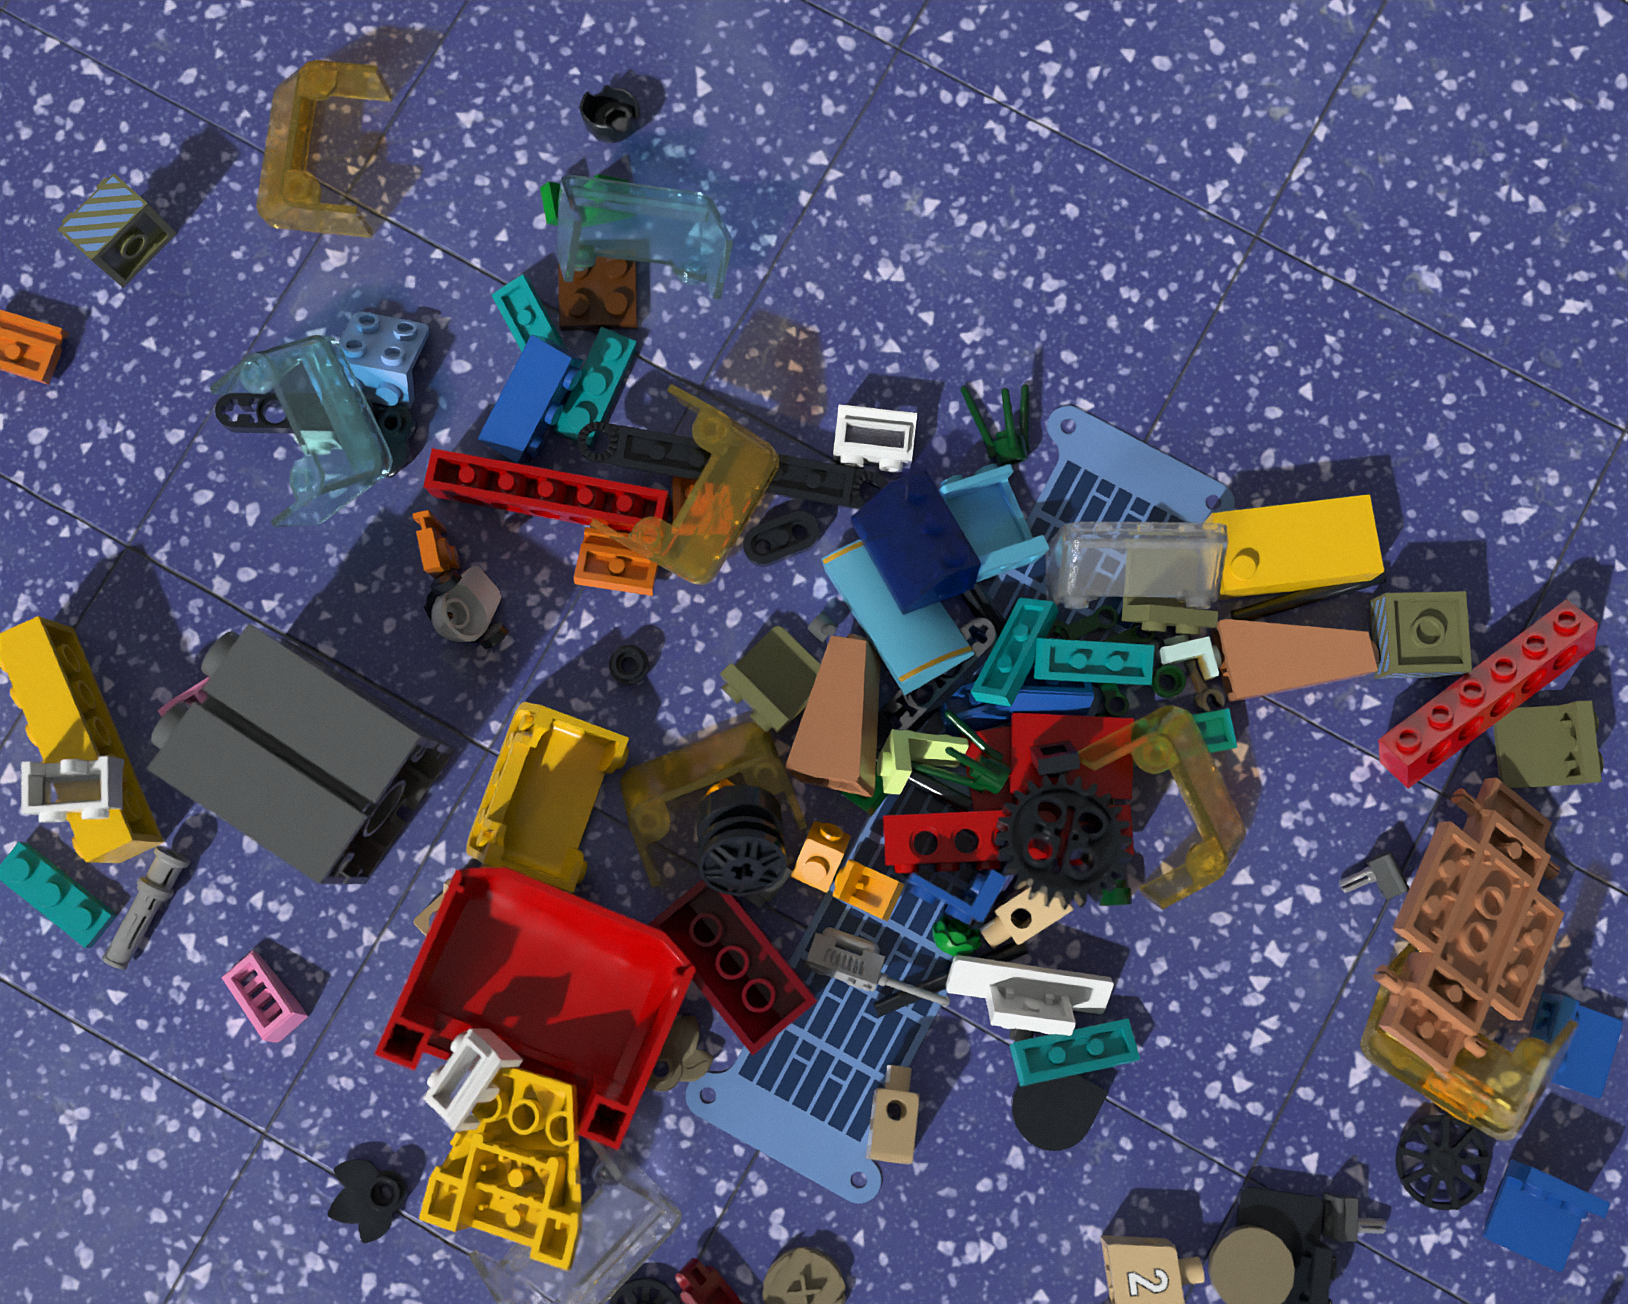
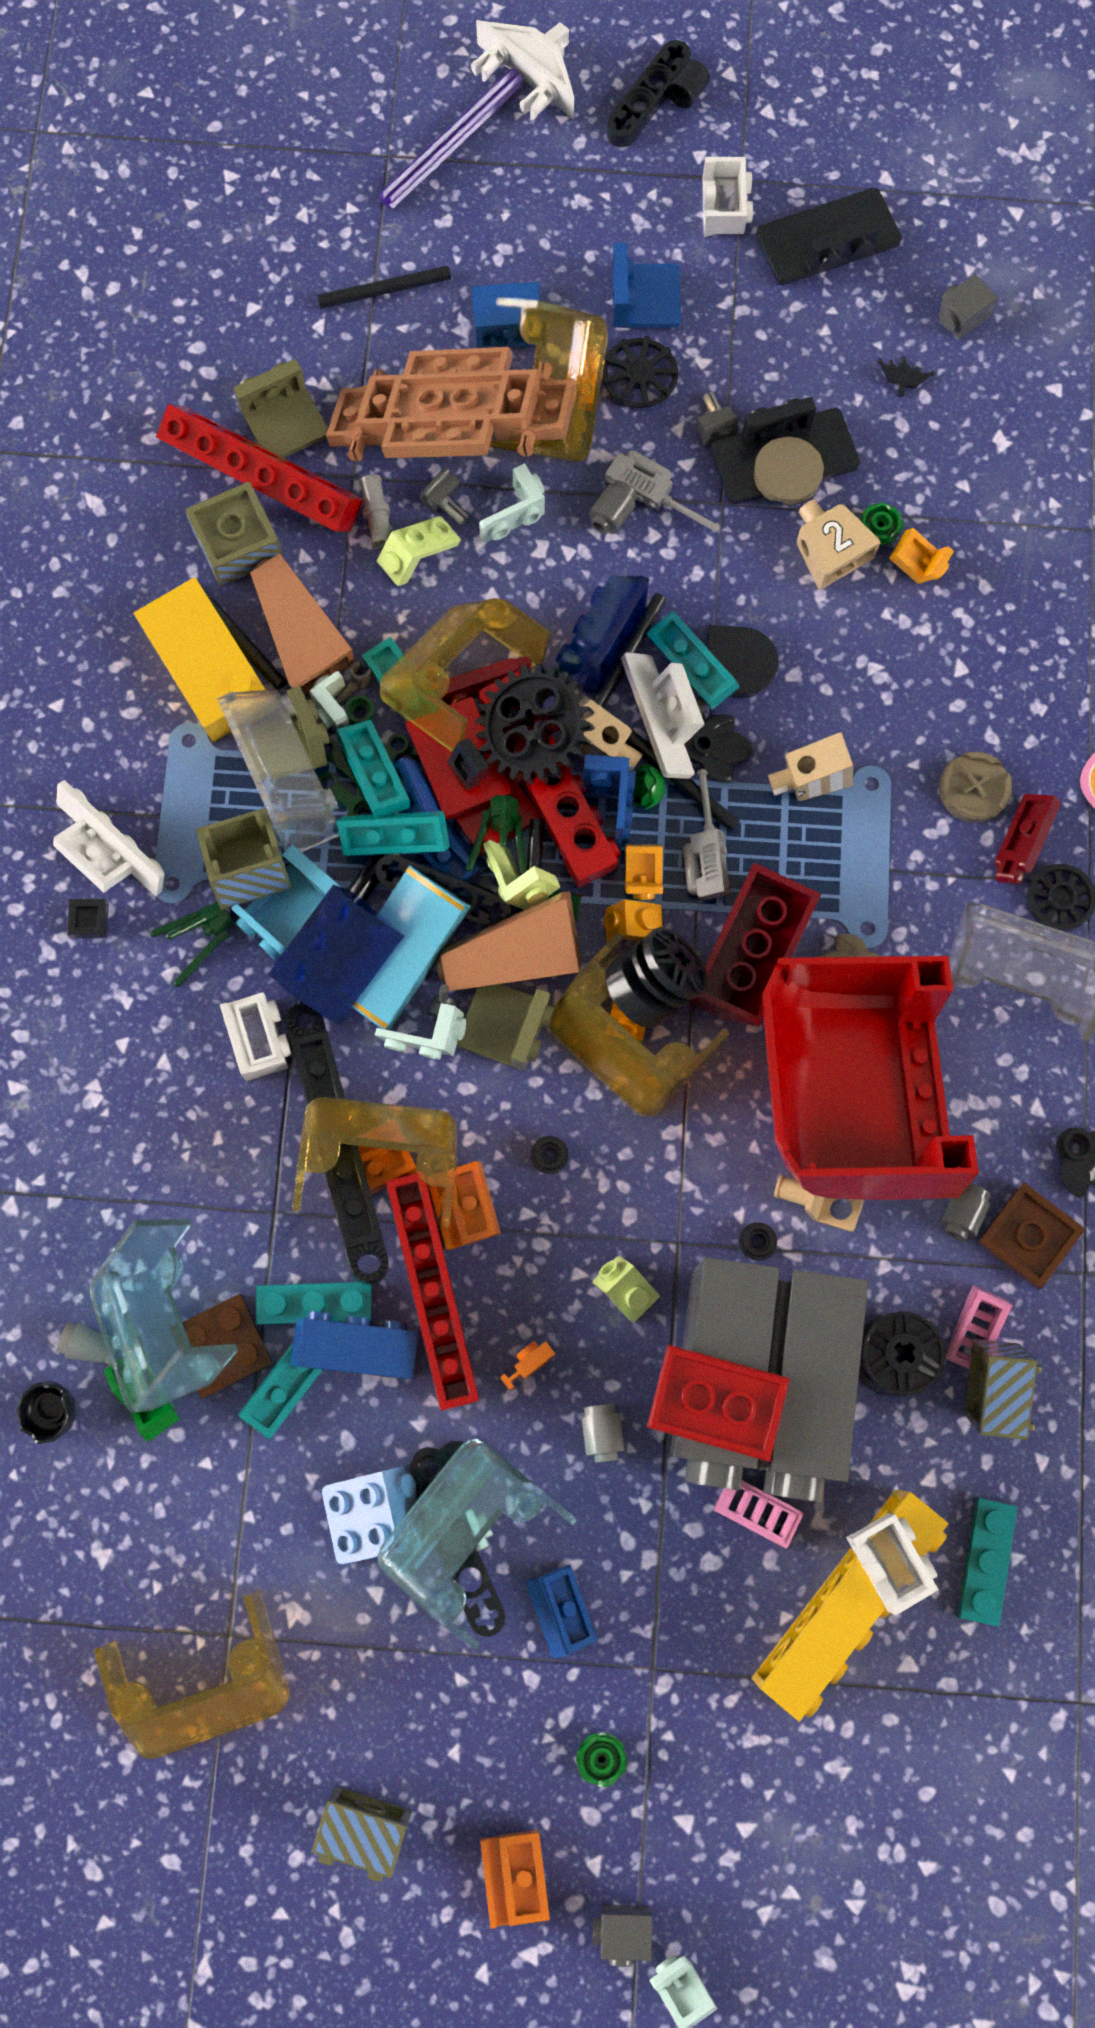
camera: 115 degrees left, 5 degrees down
(61, 461) = (603, 1773): none -> green plate
(153, 890) = (942, 1471): light grey pin -> none
(187, 983) = (1001, 1389): none -> olive container
(215, 487) = (561, 1611): none -> blue slope
(277, 681) = (718, 1403): none -> red tile
(291, 916) = (924, 1354): none -> black wheel
(321, 1097) = (1030, 1236): none -> reddish brown plate
(347, 593) = (602, 1432): none -> light grey brick
(365, 1039) = (966, 1214): none -> dark grey brick
(438, 820) = (768, 1236): none -> black plate
(464, 607) = (571, 1317): white cap -> none
(468, 676) = (626, 1288): none -> yellowish green bracket
(469, 1077) = (953, 1106): white window -> none
(516, 1169) = (1002, 1040): yellow wedge -> none
(544, 794) = (696, 1173): yellow windscreen -> none
(659, 167) = (83, 1344): none -> light grey cone
(779, 536) = (381, 1075): black plate -> none
(789, 616) = (448, 1030): none -> light aqua bracket
(965, 1039) = (722, 745): none -> black plate
(1053, 490) = (243, 858): none -> olive container
(1065, 330) = (87, 918): none -> black plate
(1119, 993) = (631, 646): none -> black bar
(1132, 366) = (100, 847): none -> white bracket
(1145, 825) = (470, 683): none -> dark red hinge
(1147, 971) = (604, 630): none -> clear blue slope
(1288, 1051) = (613, 507): none -> dark grey brick
(1295, 1100) = (650, 490): none -> light grey piece
(1321, 955) = (525, 512): none -> light aqua bracket
(1332, 821) = (412, 543): none -> yellowish green bracket
(1389, 796) = (375, 510): none -> light grey pin

